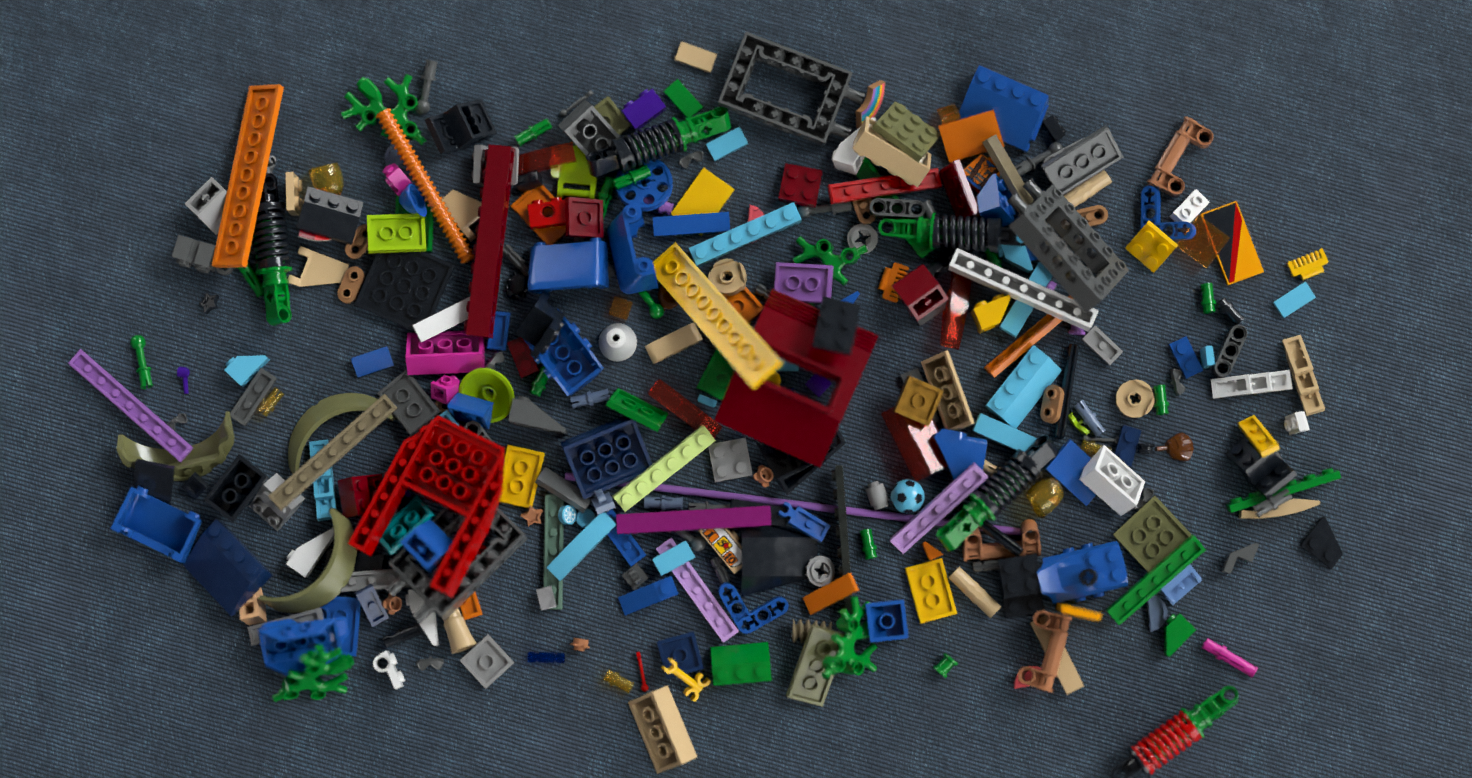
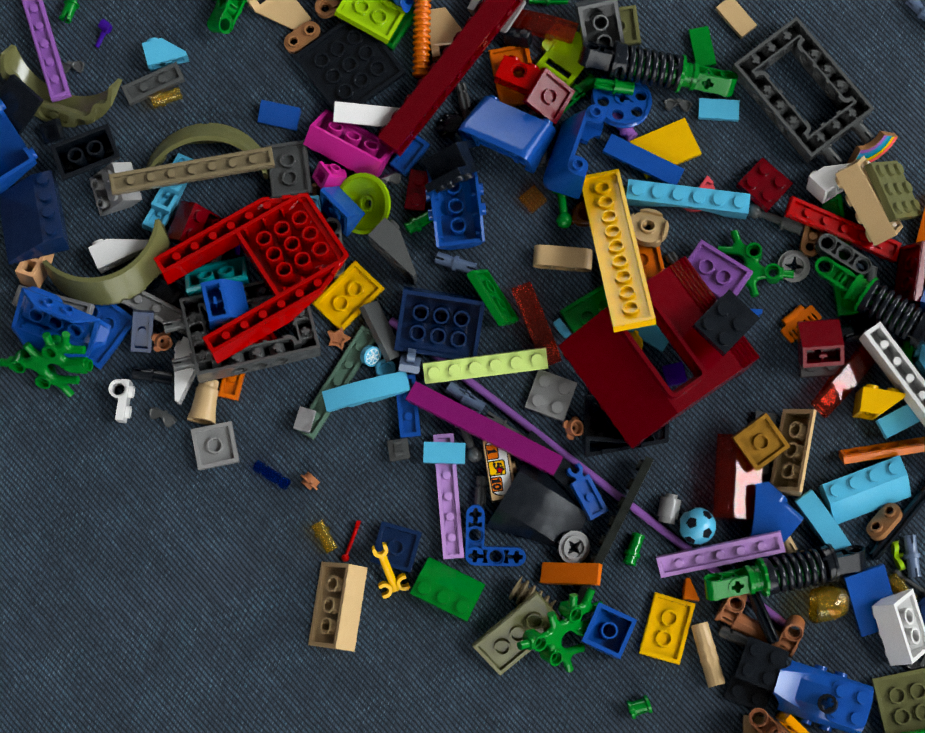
camera: 30 degrees right, 5 degrees down
(621, 349) = (511, 228): white cone -> none
(643, 109) = (661, 34): dark purple brick -> none
(648, 595) = (400, 474): blue slope -> none

